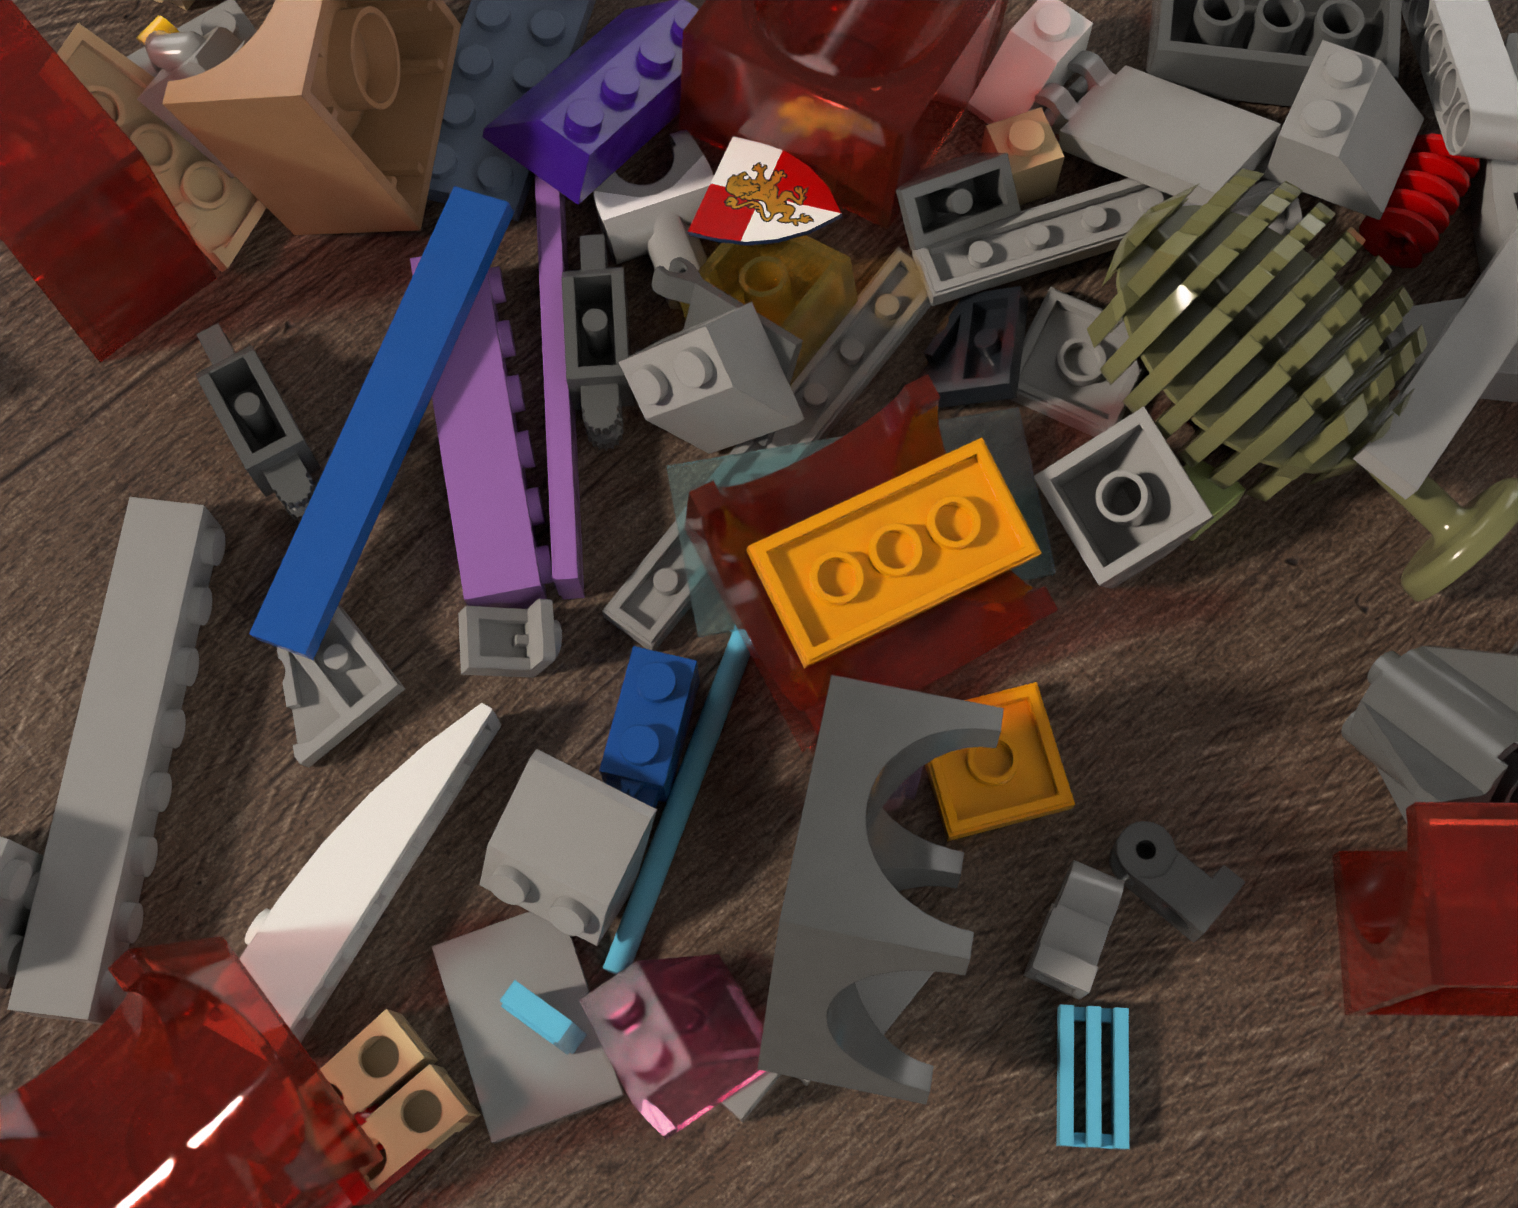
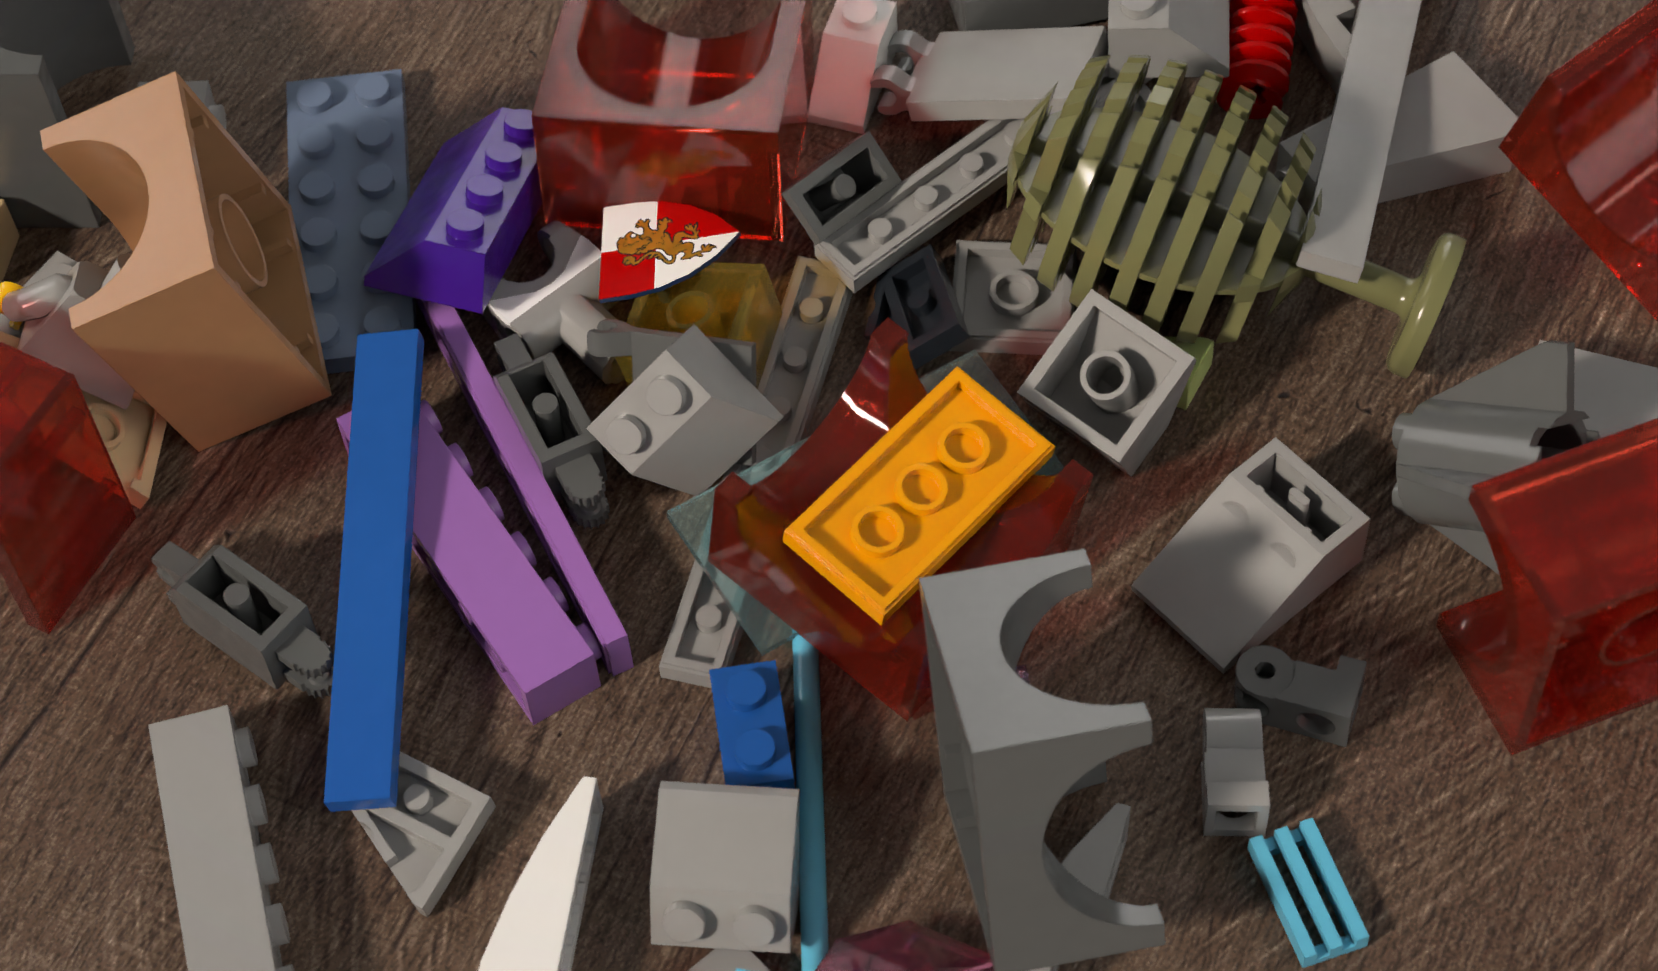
camera: 20 degrees left, 15 degrees down
(508, 640) = (582, 722): light grey bracket -> none
(1004, 784) = (1097, 651): light orange tile -> none
(1031, 151) = (892, 126): tan brick -> none
(1186, 725) = (1254, 555): none -> light grey slope

